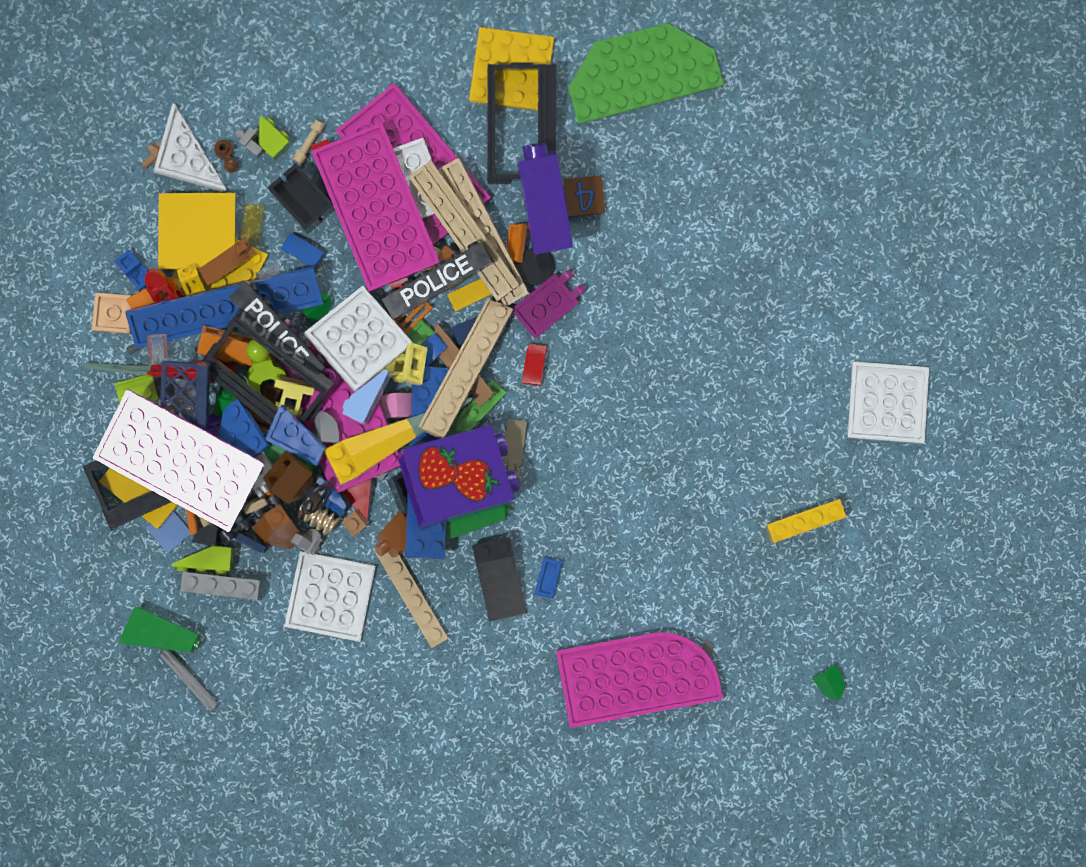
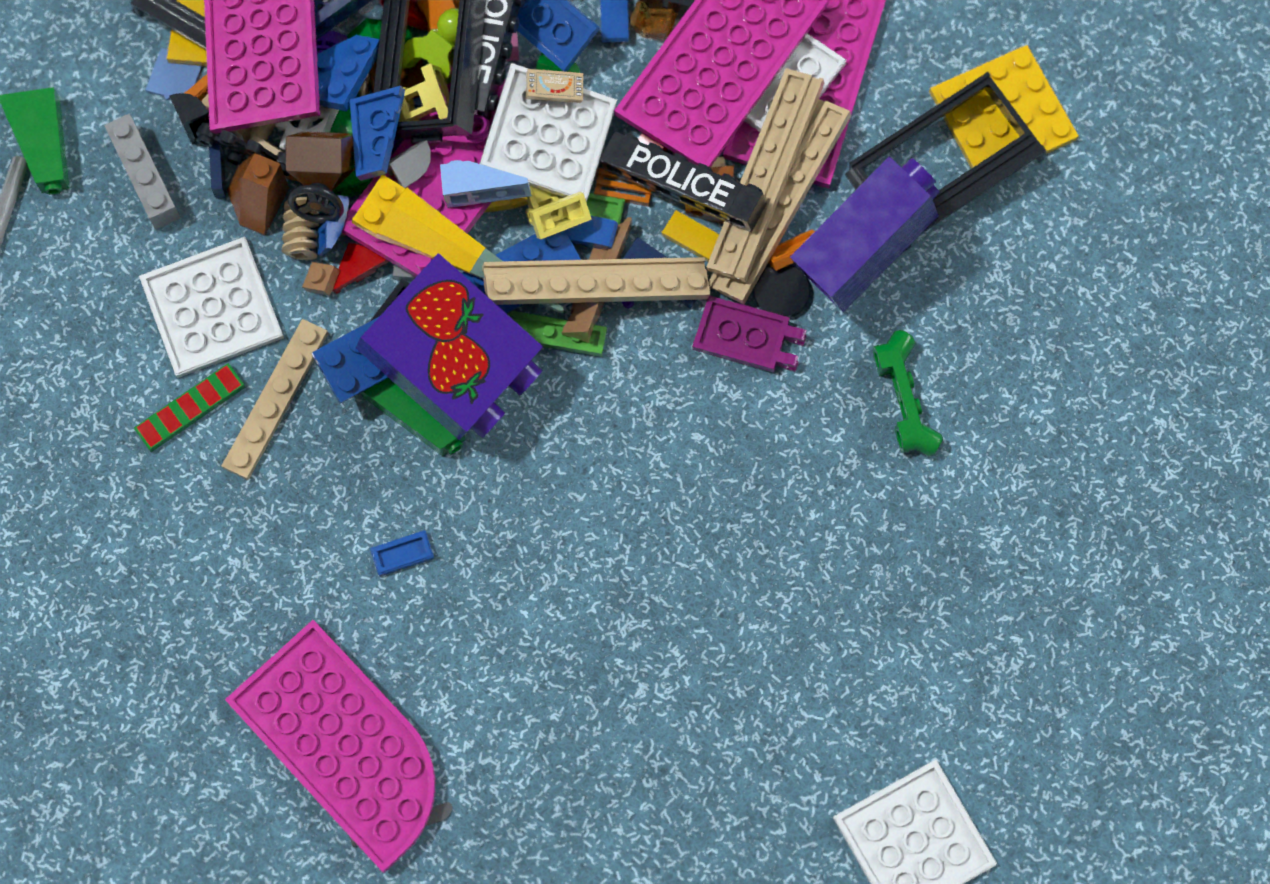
camera: 55 degrees right, 10 degrees down
(212, 558) = (169, 139): lime slope -> none
(309, 542) = (260, 240): light grey piece -> none
(323, 231) = (652, 22): none -> clear orange bracket
(334, 316) = (554, 86): none -> tan tile
(383, 645) = (189, 407): none -> tile
(392, 537) = (328, 326): dark orange torso -> none
(396, 405) = (496, 233): bright pink piece -> none
(499, 579) = (362, 491): black slope -> none
(515, 444) = (539, 408): dark tan hinge -> none
(534, 365) = (659, 364): red slope -> none
(584, 196) = (910, 295): reddish brown tile -> none
(615, 233) = (910, 432): none -> green plate
(642, 72) = (1112, 266): bright green plate -> none
(805, 521) = (686, 830): yellow brick -> none

